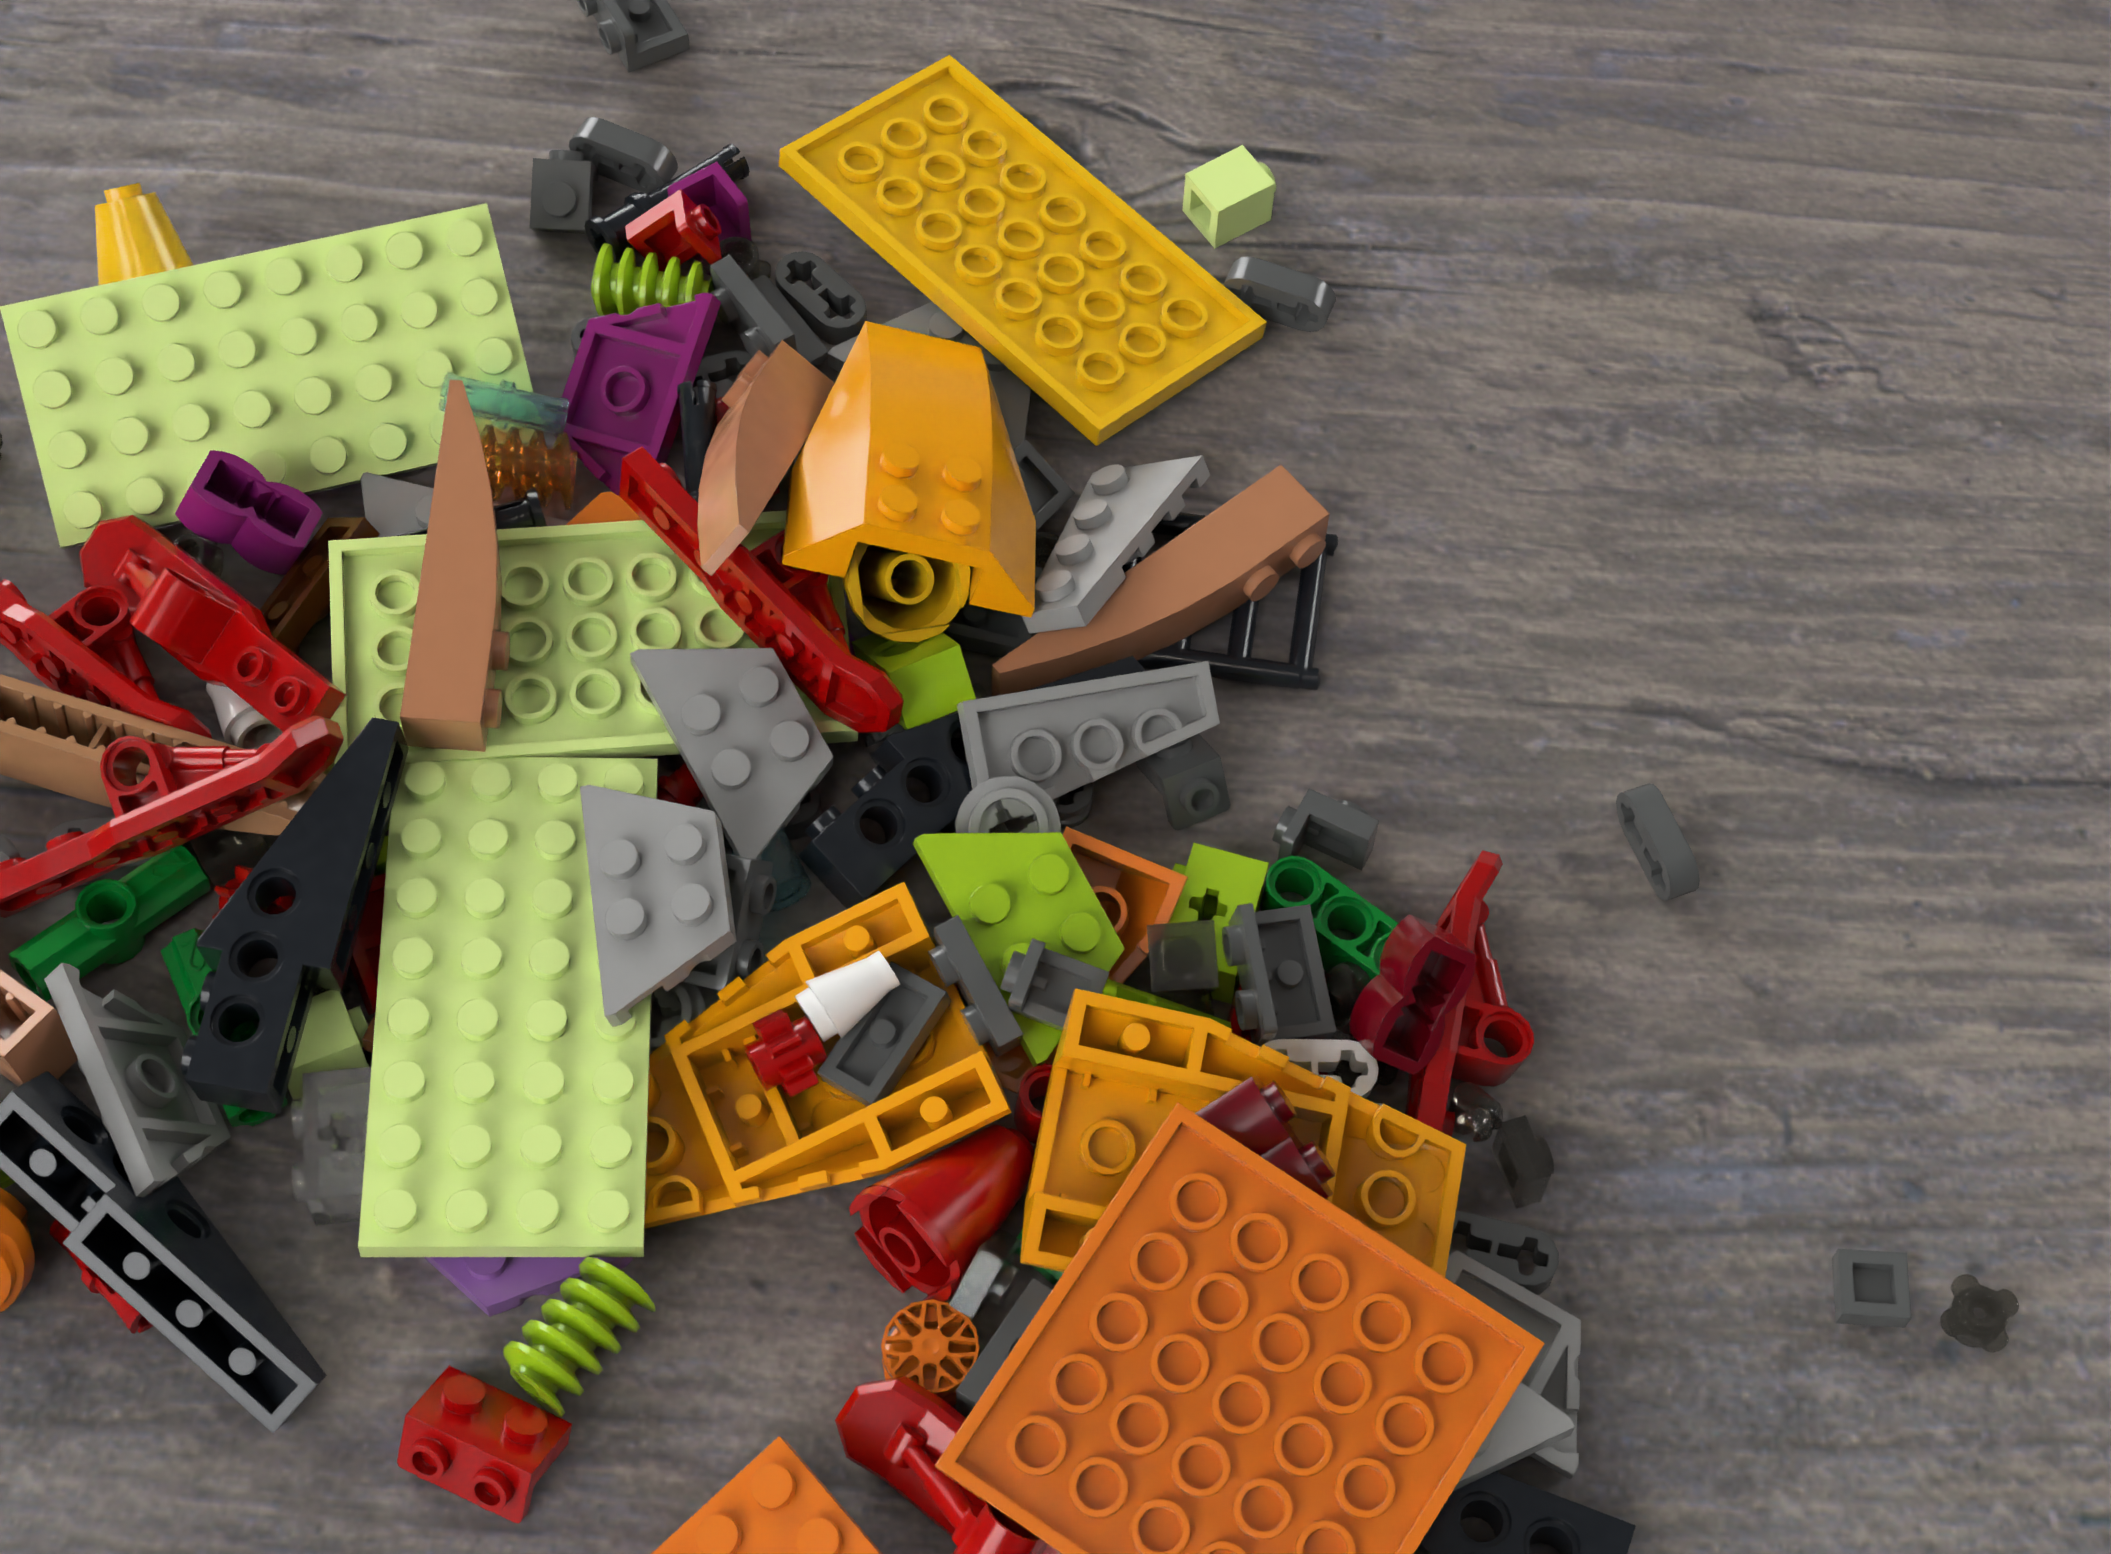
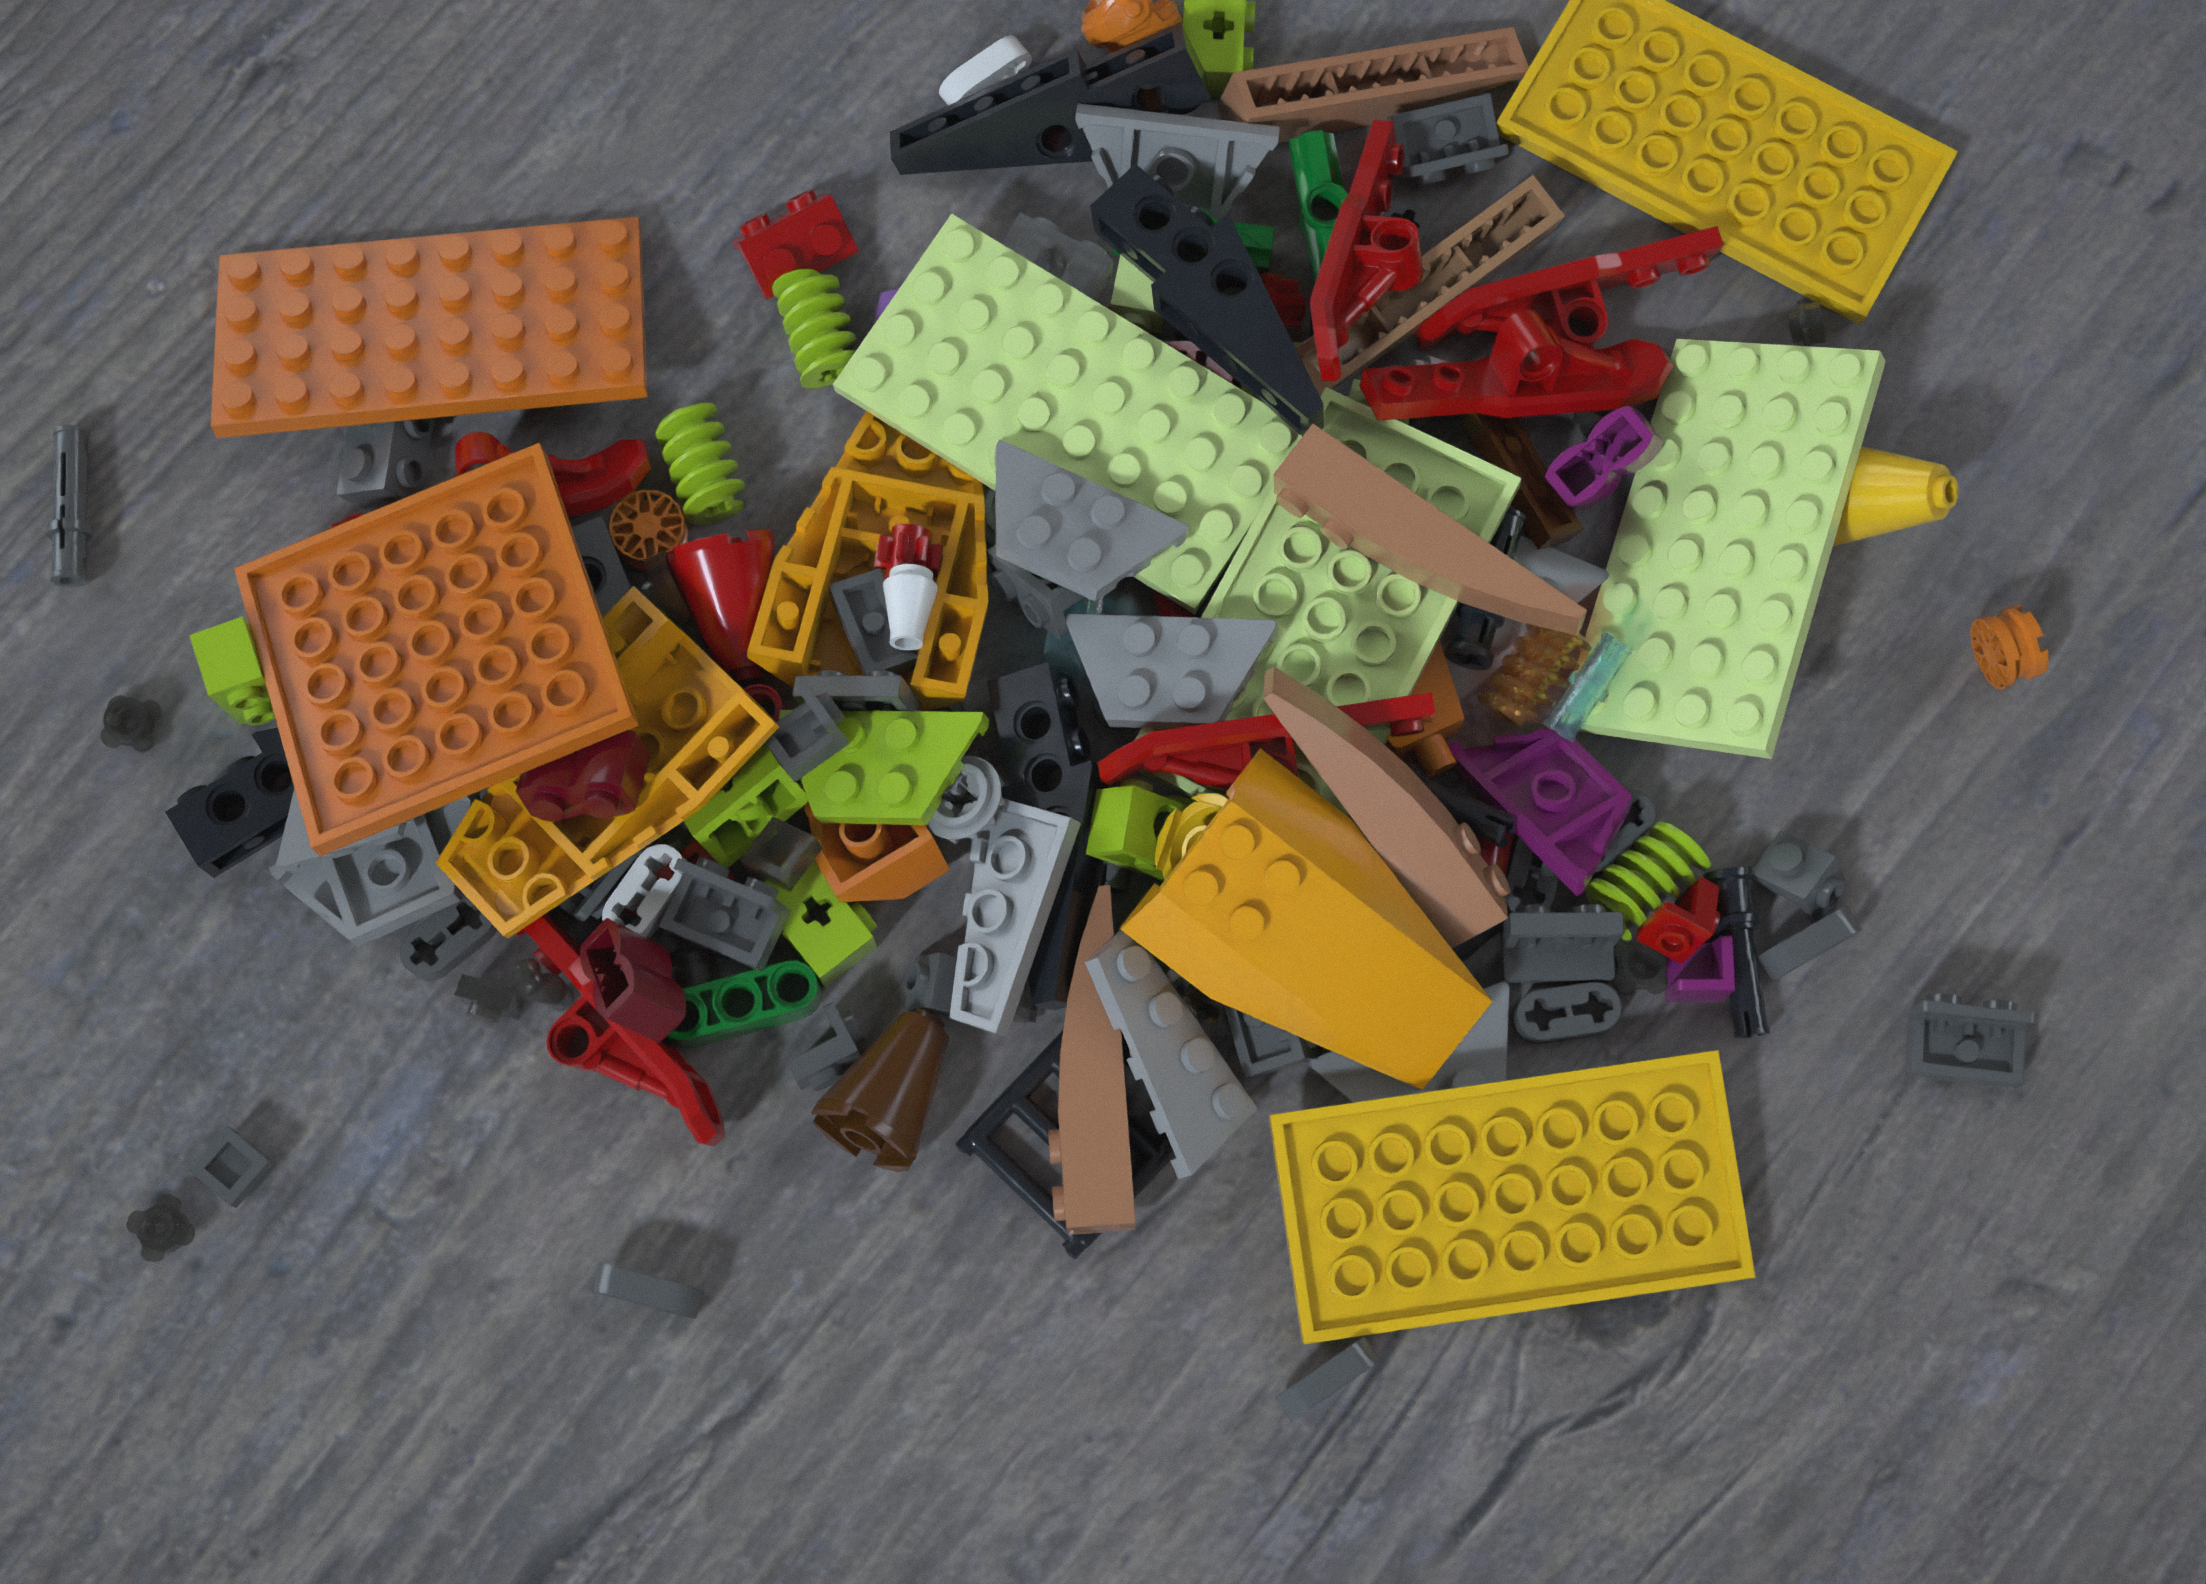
camera: 125 degrees right, 15 degrees up
(137, 1370) = (993, 65): none -> white beam
(230, 138) = (2008, 647): none -> orange wheel
(812, 1349) = (697, 464): none -> lime piece
(1229, 196) = (1454, 1412): yellowish green brick -> none
(1322, 744) = (887, 1092): none -> reddish brown cone

